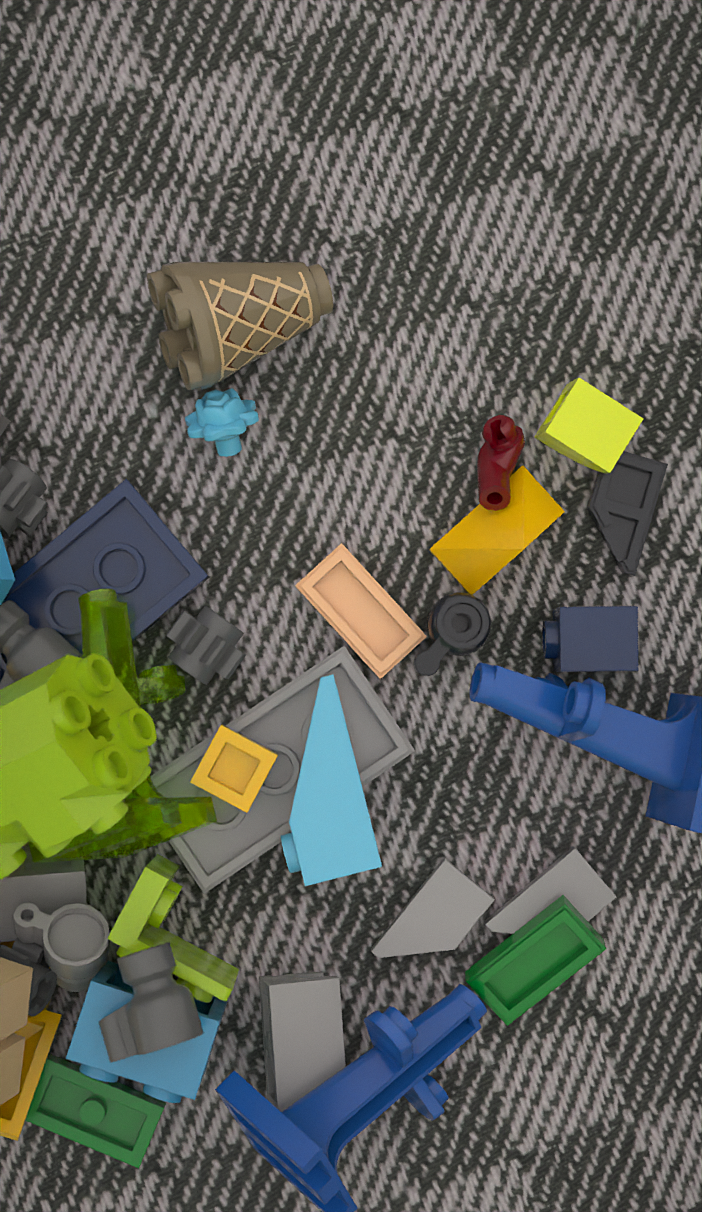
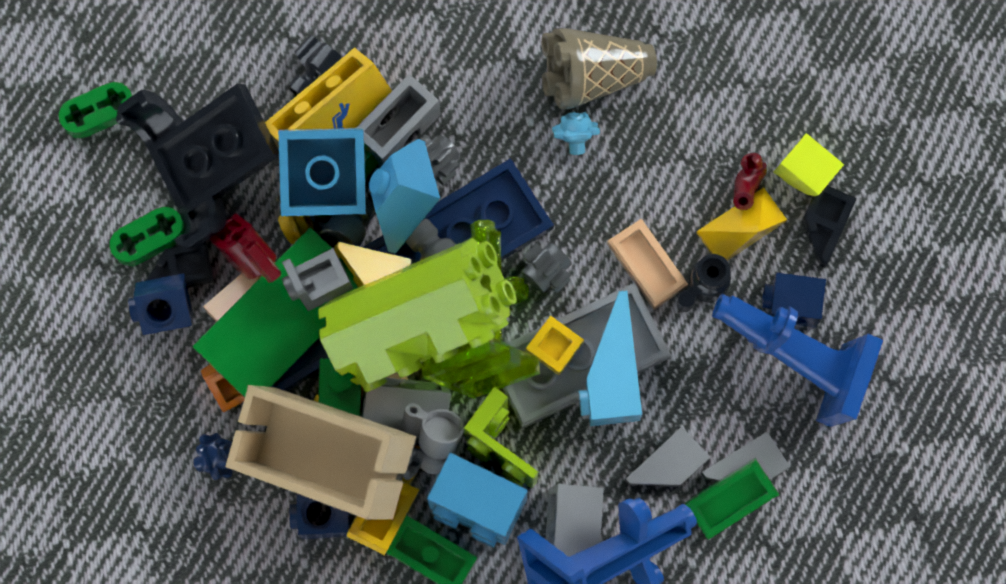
camera: 10 degrees right, 10 degrees down
(158, 1012) = (493, 472): dark grey piece -> none

